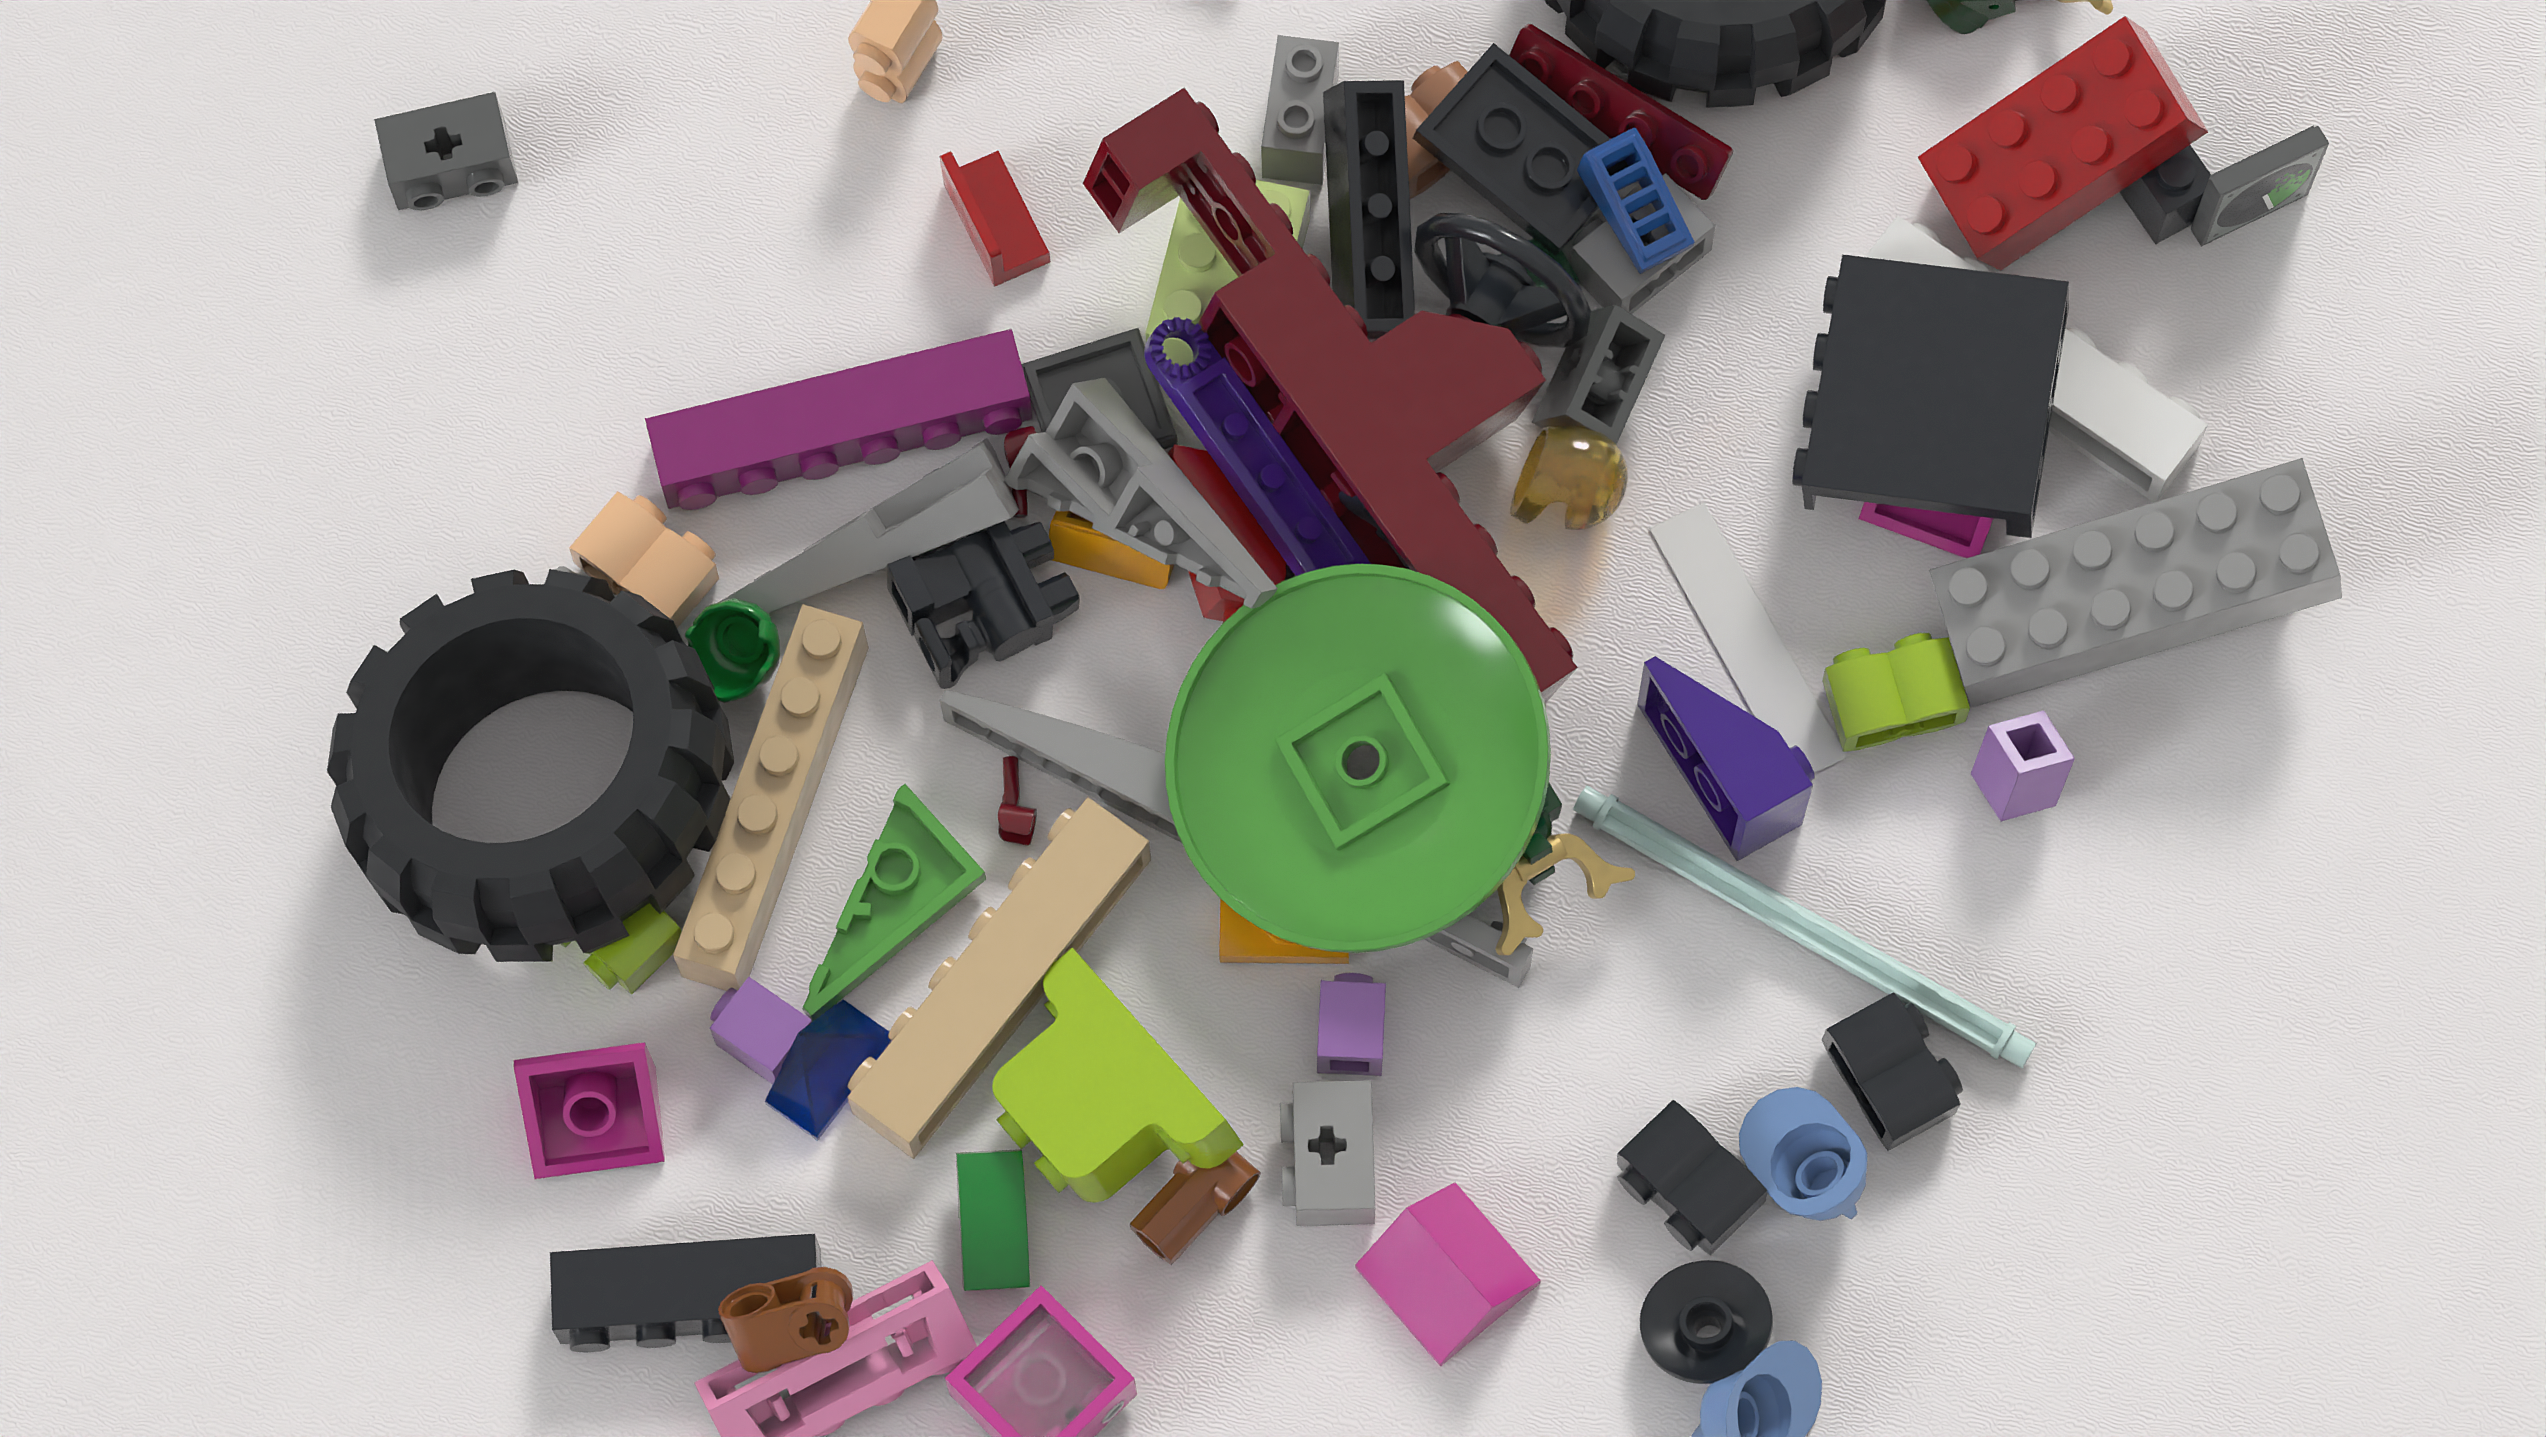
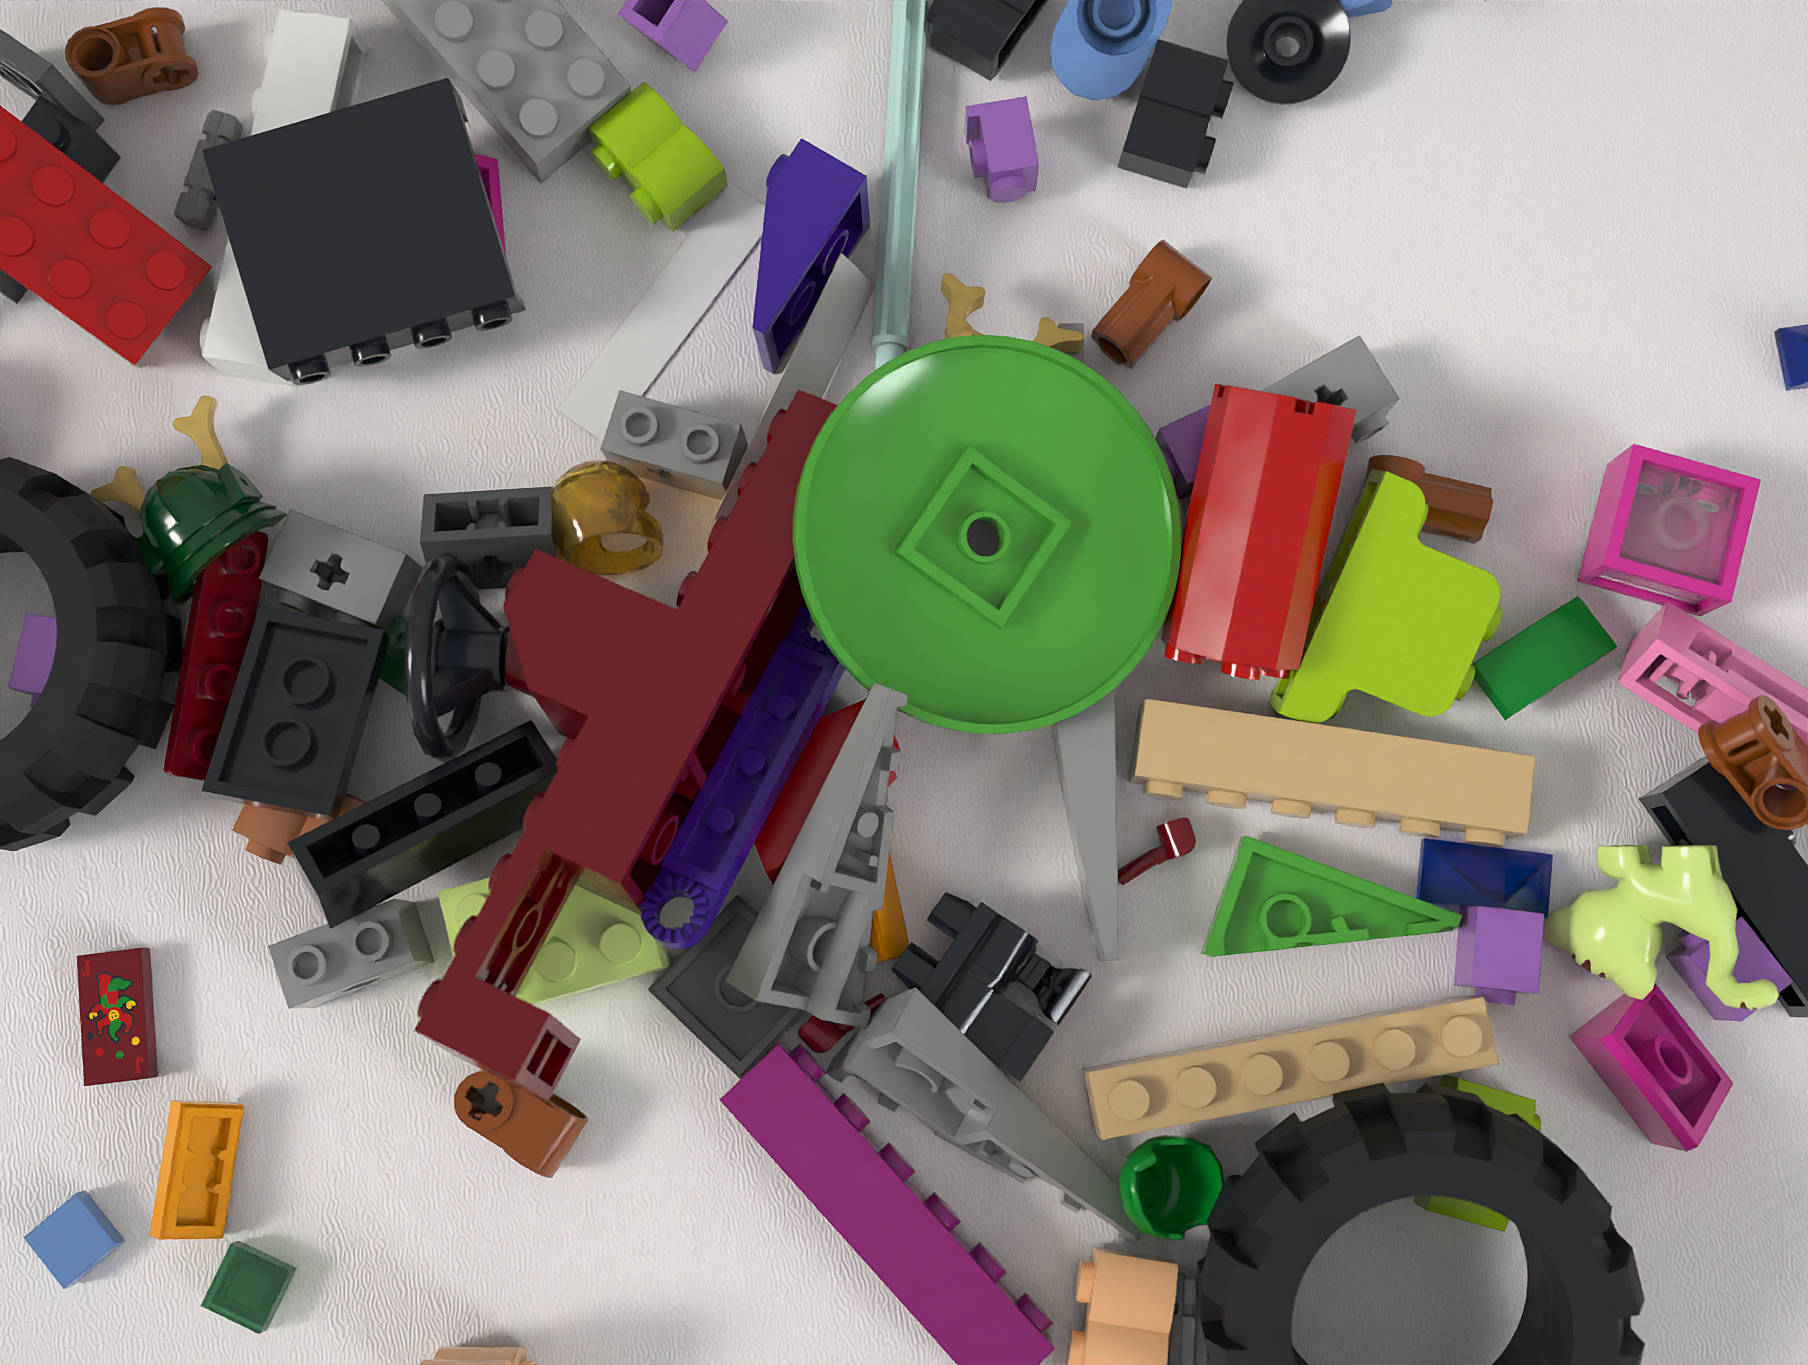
camera: 115 degrees left, 10 degrees up
(635, 1212) = (1752, 964): none -> medium lavender brick
(729, 1161) = (1620, 931): none -> yellowish green animal
(994, 216) = (601, 1189): red panel -> none
(1059, 184) = (525, 1127): none -> dark orange piece
(1241, 996) = (1257, 531): none -> red brick
(1446, 1271) = (1358, 267): dark pink slope -> none
(1521, 1073) = (1159, 292): none -> dark orange piece
(1603, 572) = (674, 445): none -> light grey brick
(1624, 733) = (813, 357): none -> white sticker
(1642, 168) = (306, 612): blue slope -> none
(1736, 1004) = (1002, 147): none -> medium lavender brick
(1749, 147) = (193, 510): none -> dark green helmet
(2100, 311) = (195, 206): none -> light grey axle
(2237, 298) = (136, 54): none -> dark orange piece

